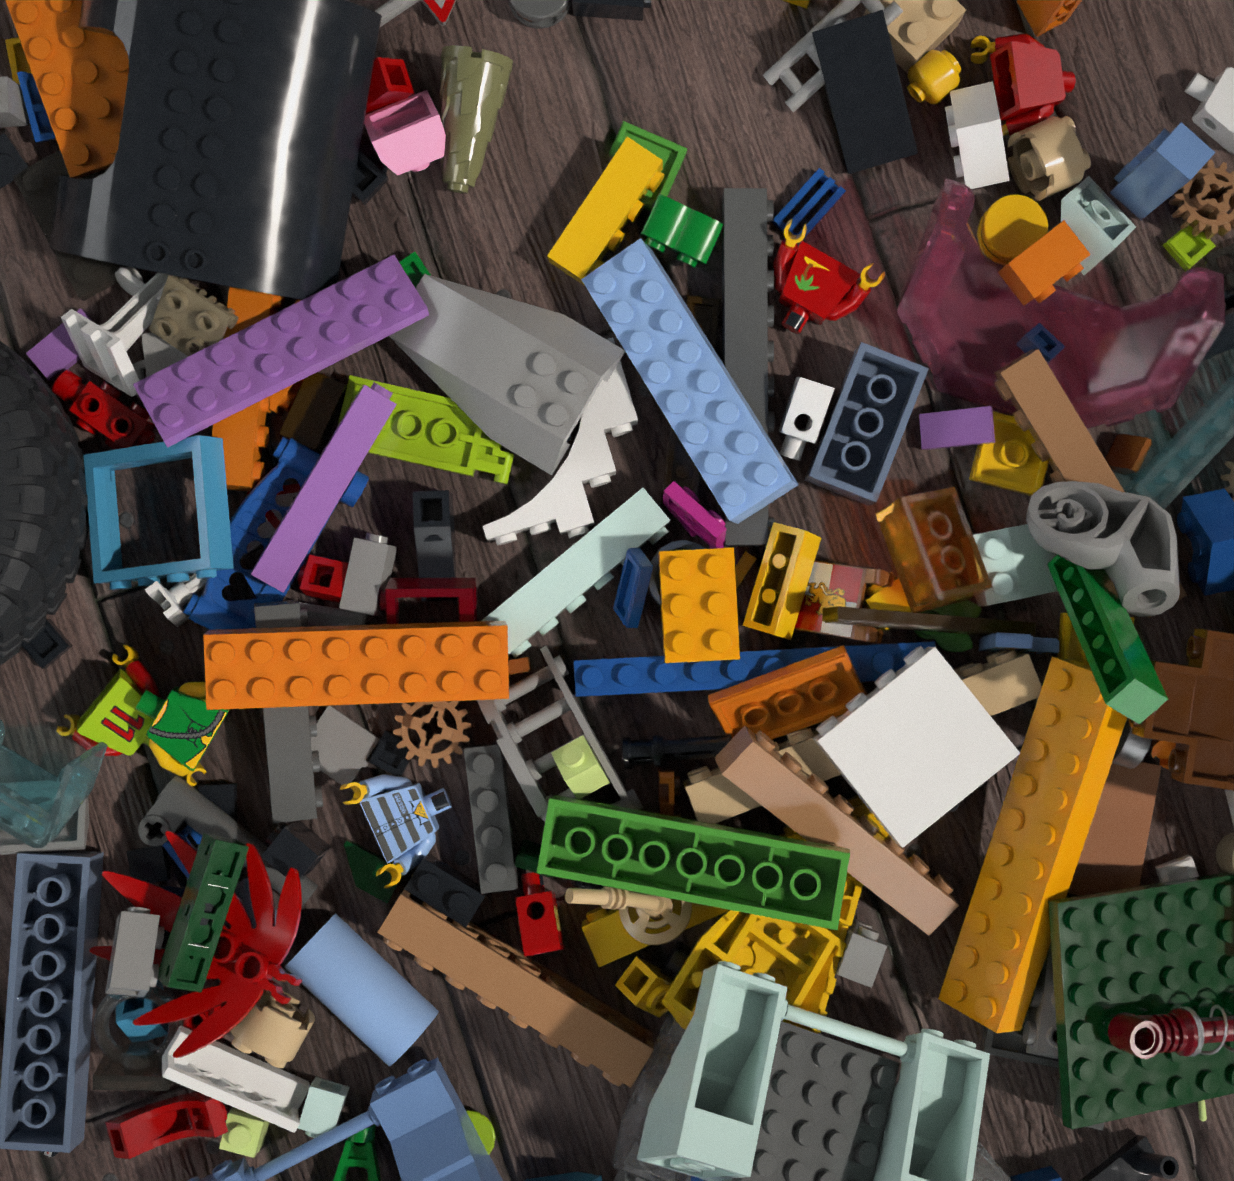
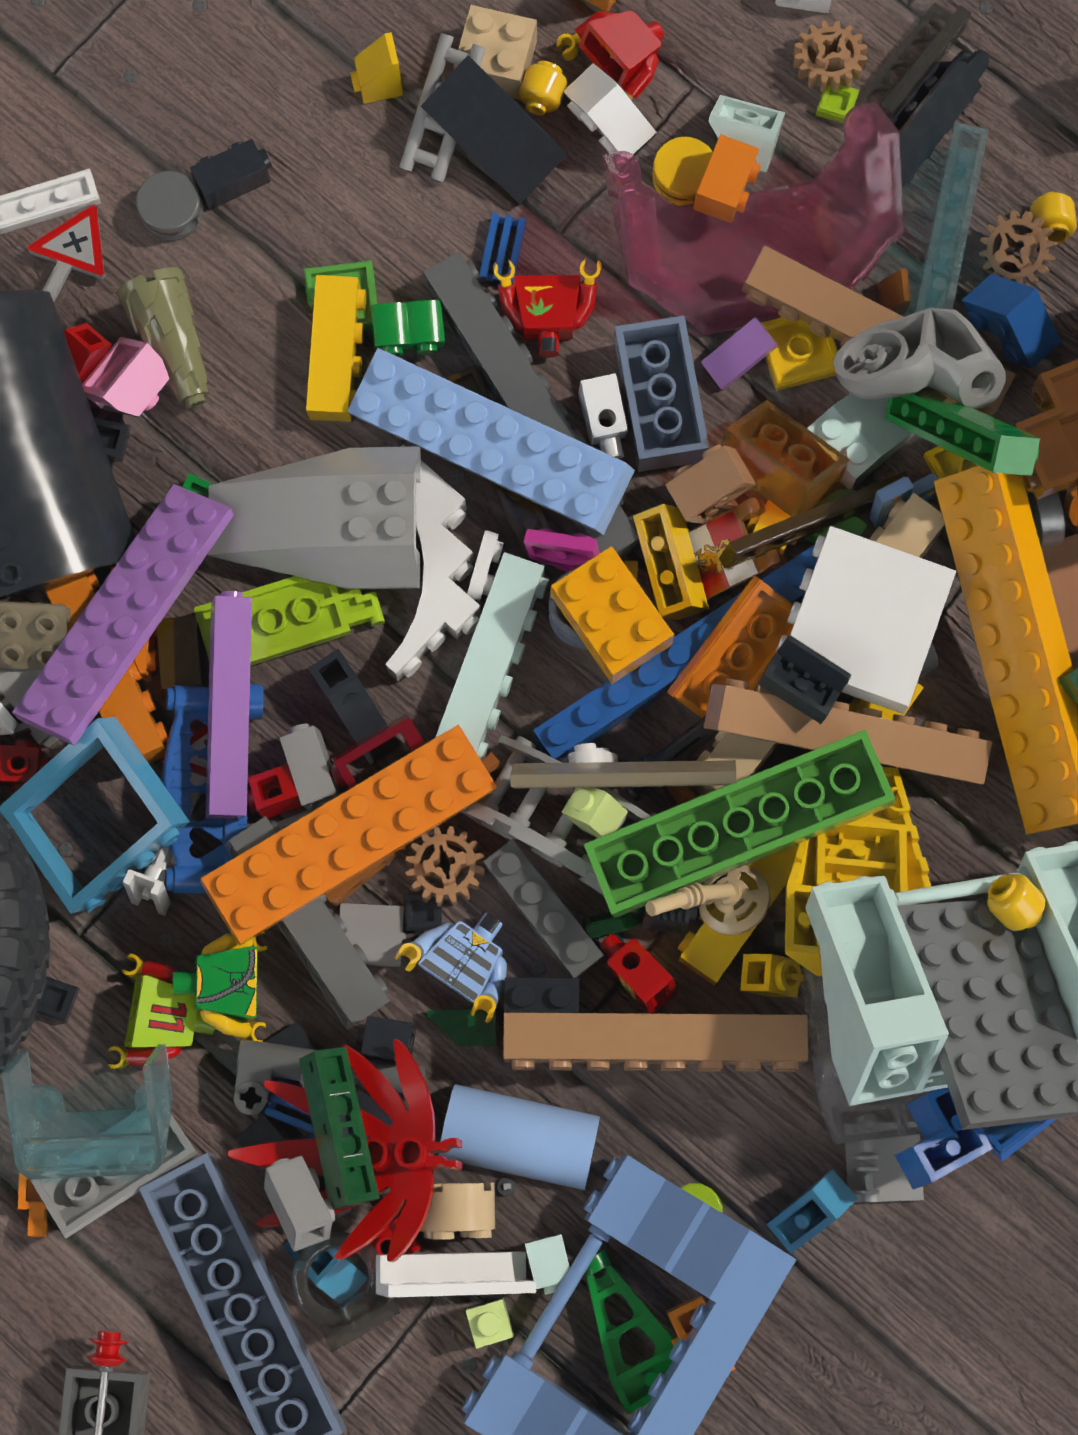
camera: 25 degrees left, 10 degrees down
(165, 1122) = (416, 1357): red arch -> none
(327, 1022) = (506, 1186): none -> black piece
(610, 497) = (489, 552): none -> white plate
(610, 715) = (589, 753): none -> white plate
(623, 754) = (623, 774): none -> dark tan tile
(633, 587) = (547, 640): blue tile -> none
(824, 774) = (804, 679): none -> black bracket
(856, 537) = (710, 485): none -> medium nougat brick
(862, 954) = (936, 831): light grey brick -> none
(886, 1074) = (1016, 902): none -> yellow head
(1043, 340) = (760, 239): dark blue plate -> none
(1047, 157) = (676, 97): tan brick -> none
(1160, 170) = (772, 51): medium blue brick -> none

